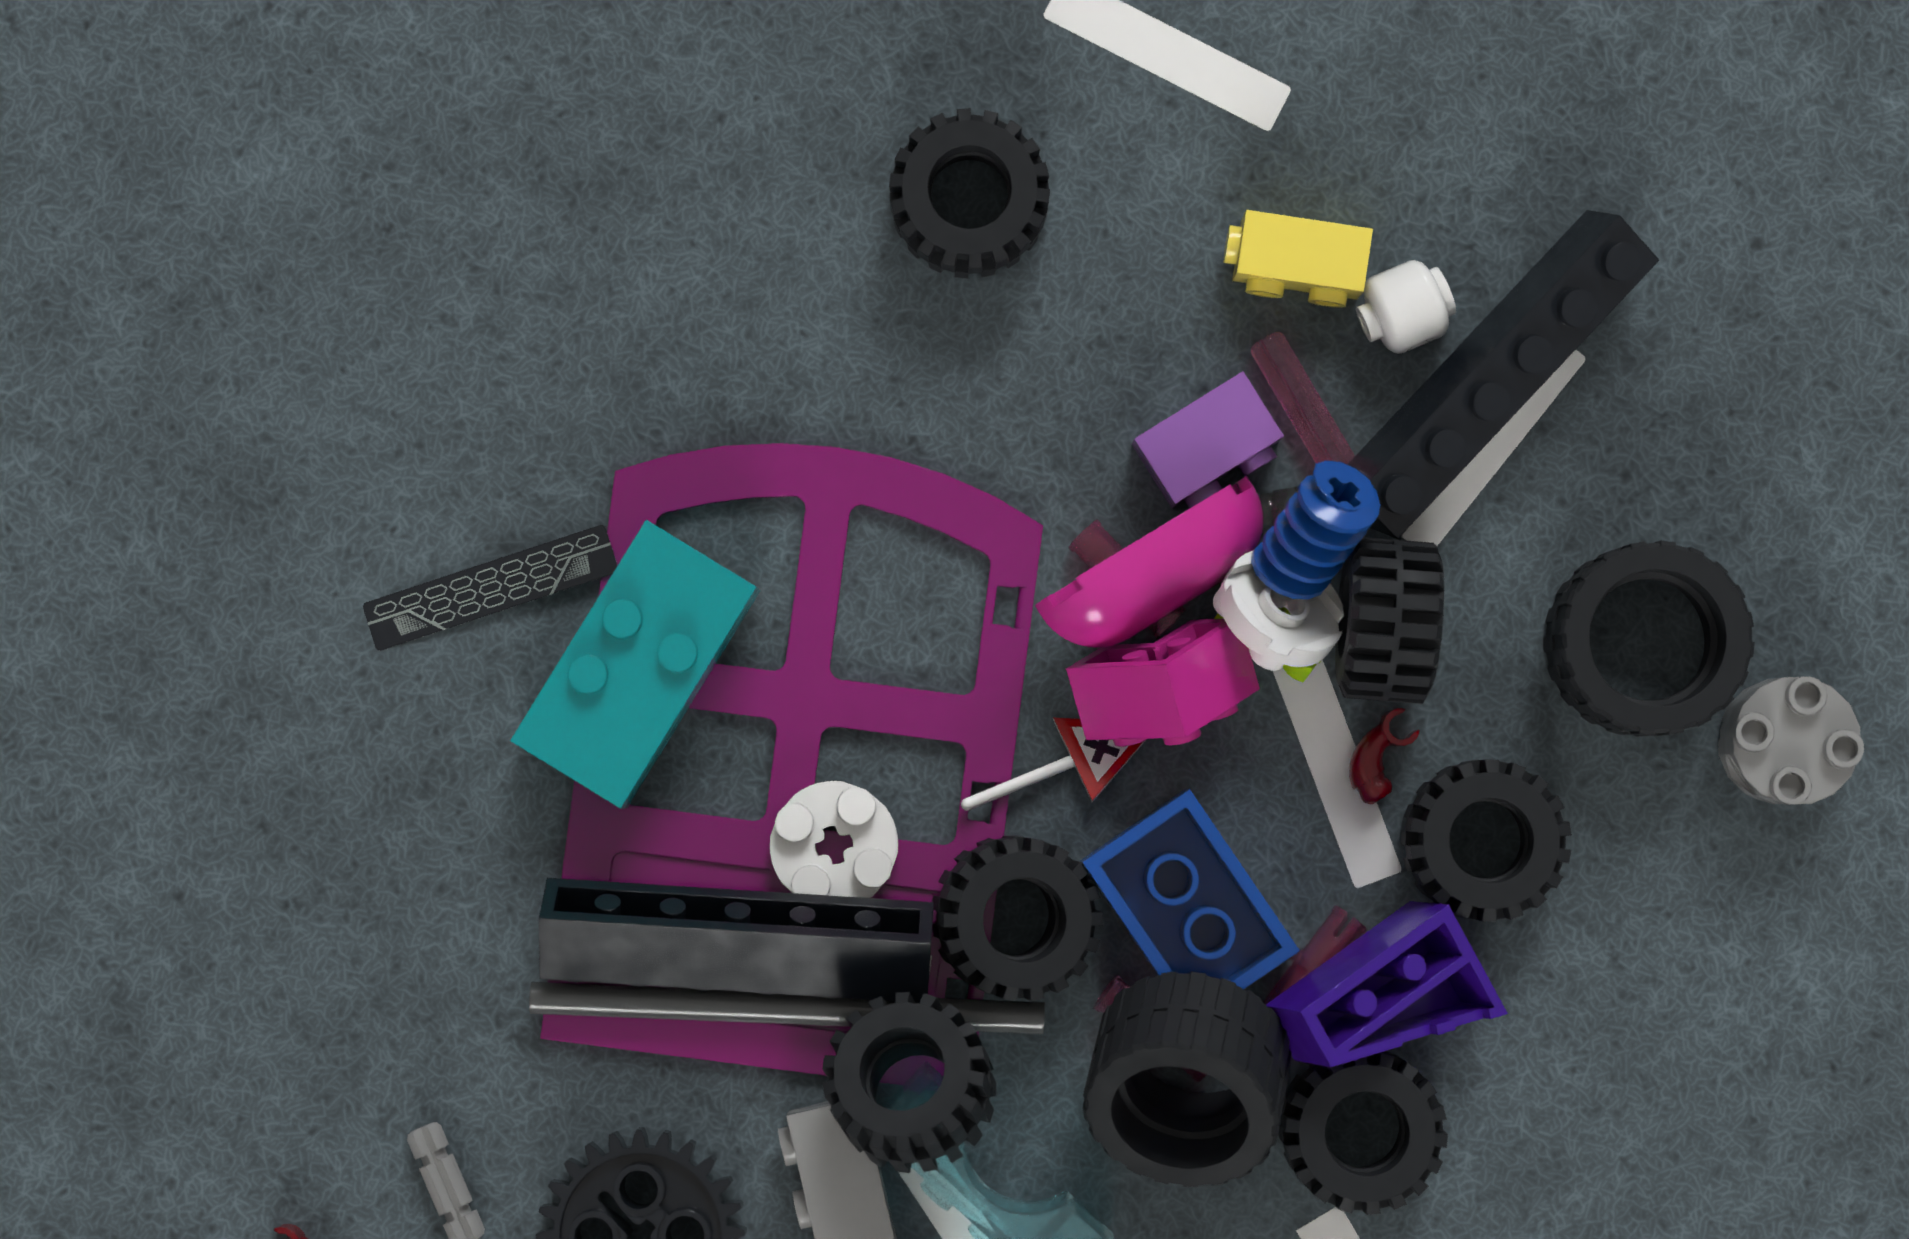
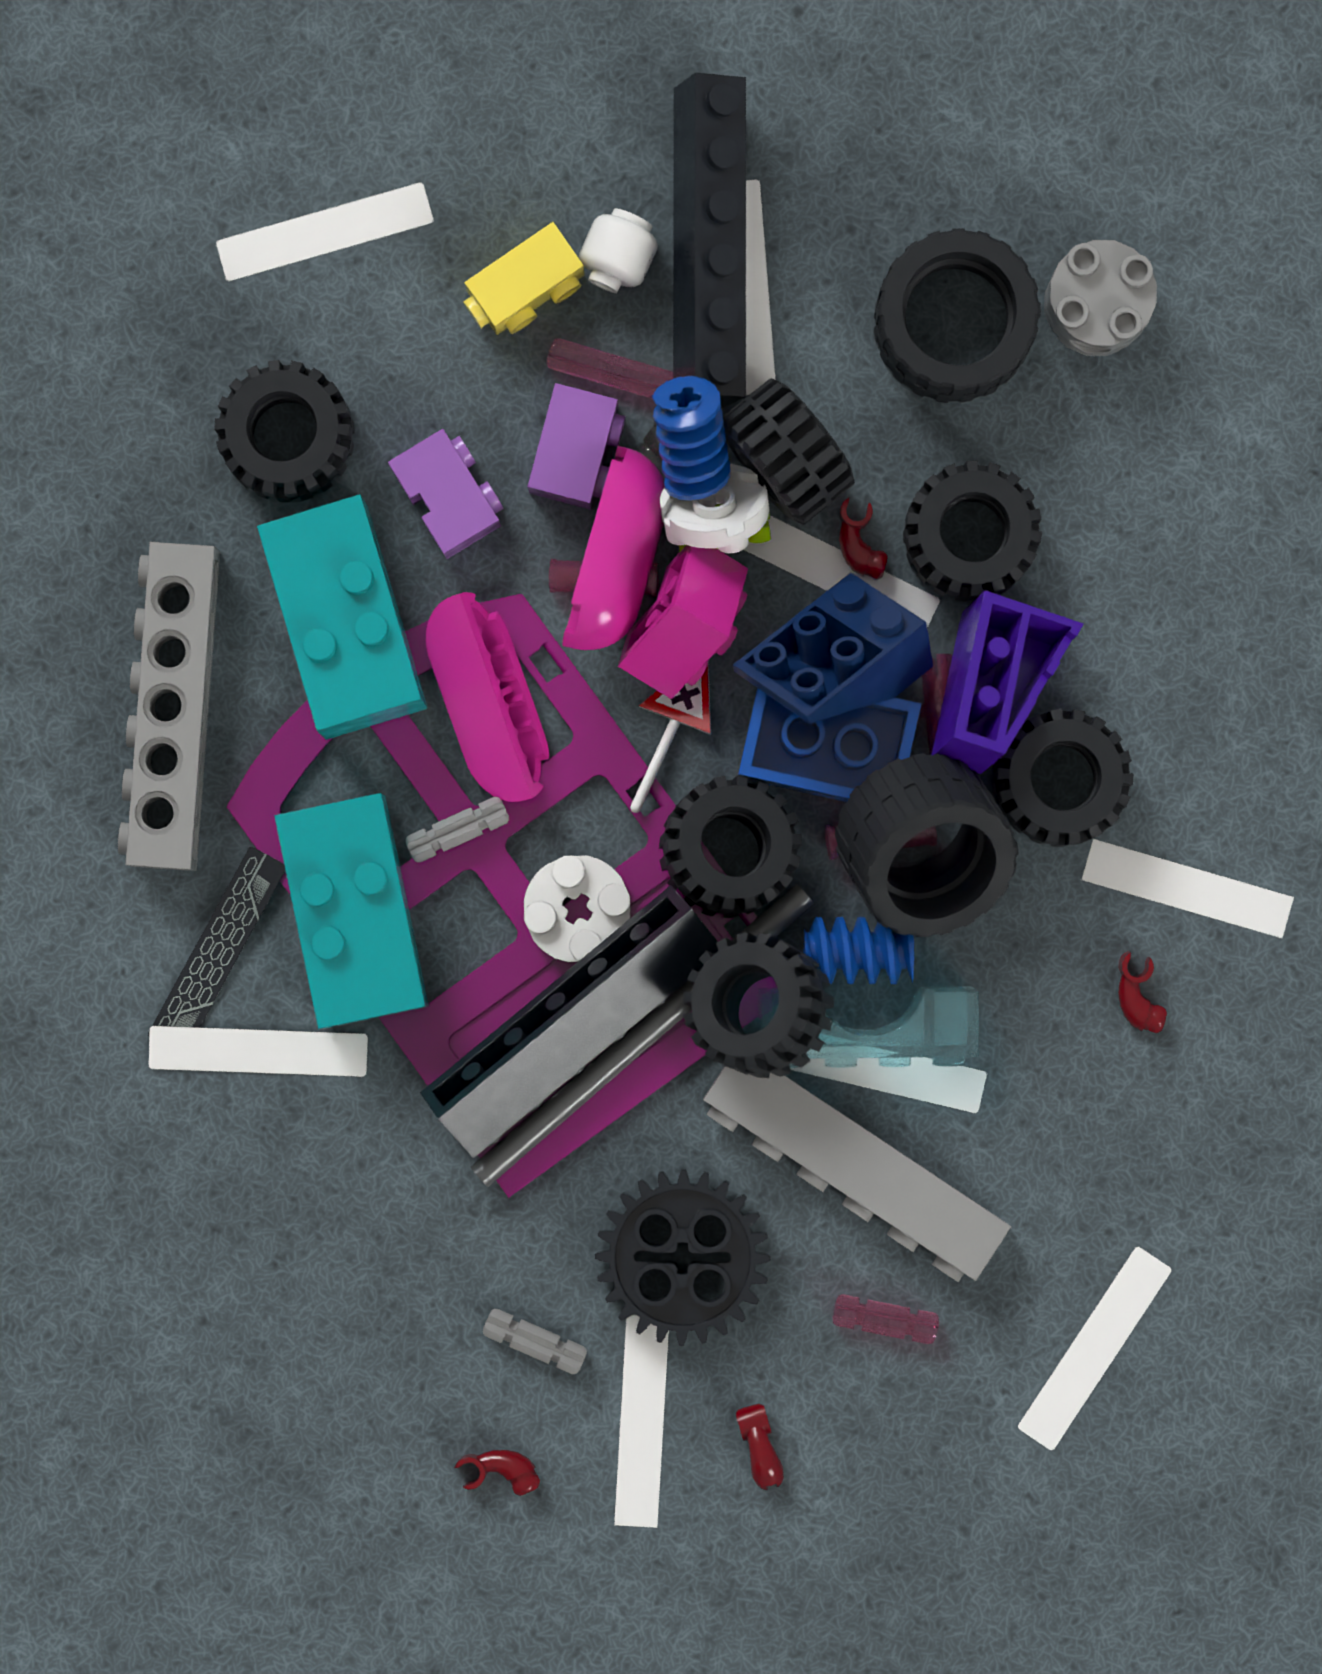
camera: 40 degrees left, 0 degrees up
(444, 707) = (258, 1051): none -> white sticker
(685, 333) = (198, 571): none -> light grey brick
(794, 678) = (457, 829): none -> light grey axle
(867, 401) = (342, 617): none -> teal brick
(927, 589) = (487, 697): none -> dark pink brick
(1043, 1111) = (859, 950): none -> blue piece
(1066, 358) = (440, 477): none -> medium lavender brick
(1270, 841) = (840, 653): none -> dark blue slope

